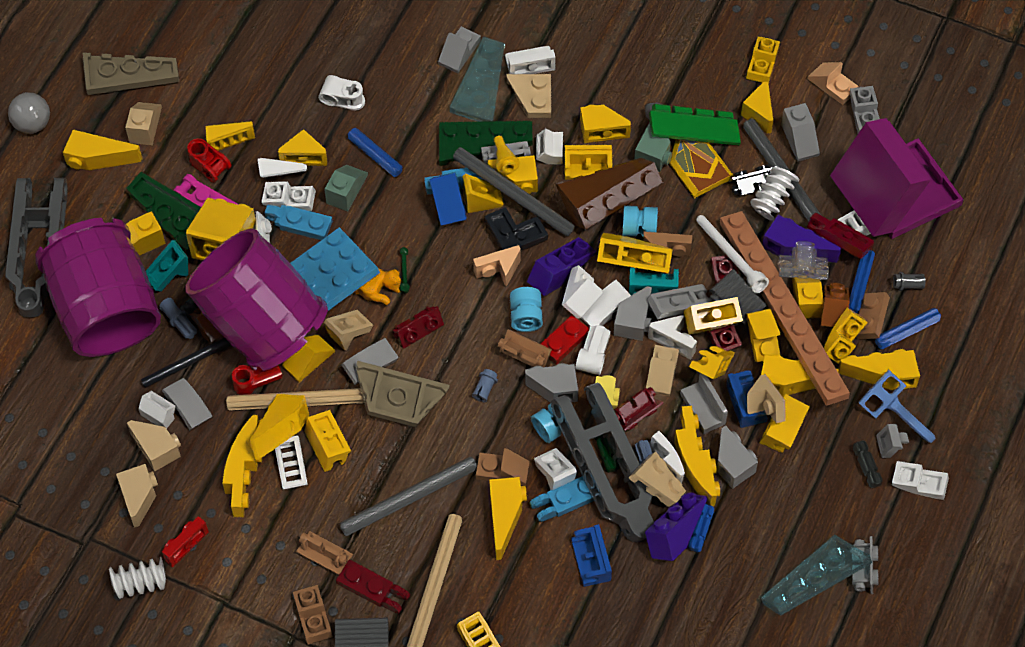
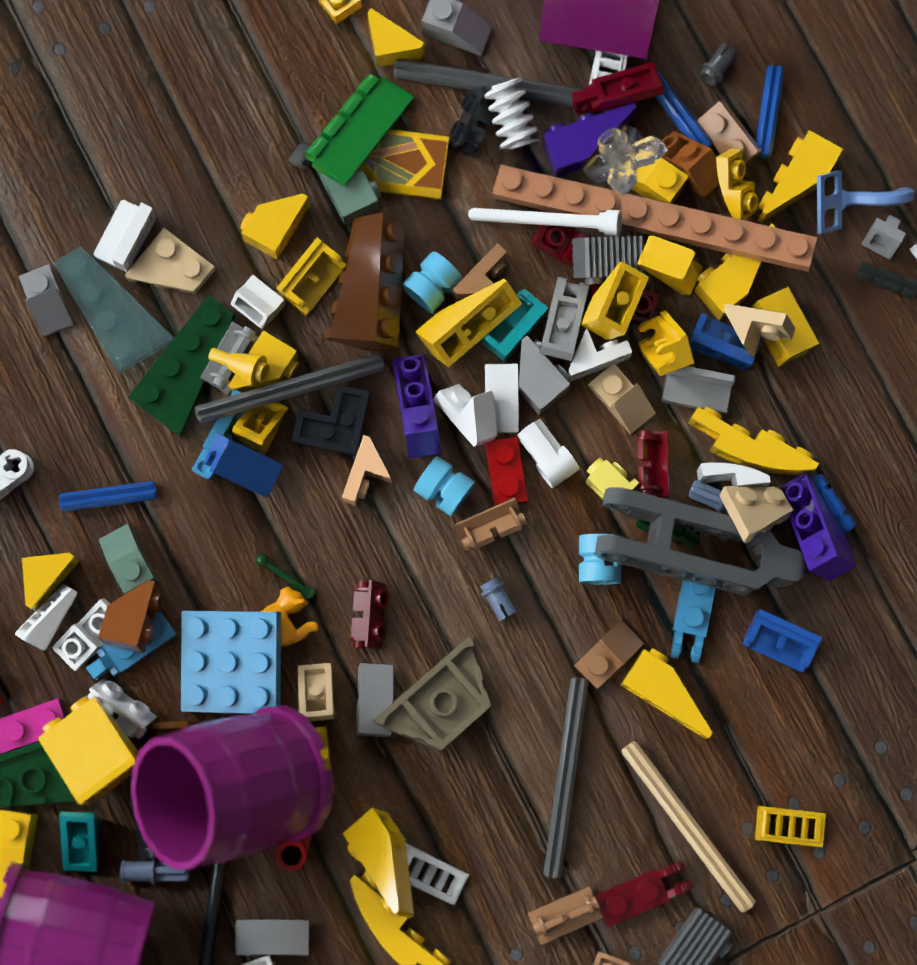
camera: 55 degrees left, 20 degrees up
(313, 398) = (361, 804): tan axle -> none
(314, 202) = (130, 618): none -> dark orange slope
(326, 439) = (436, 817): yellow hinge -> none
(553, 381) = (556, 525): light grey slope -> none
(555, 468) = (657, 601): white slope -> none
(734, 460) = (784, 411): light grey slope -> none

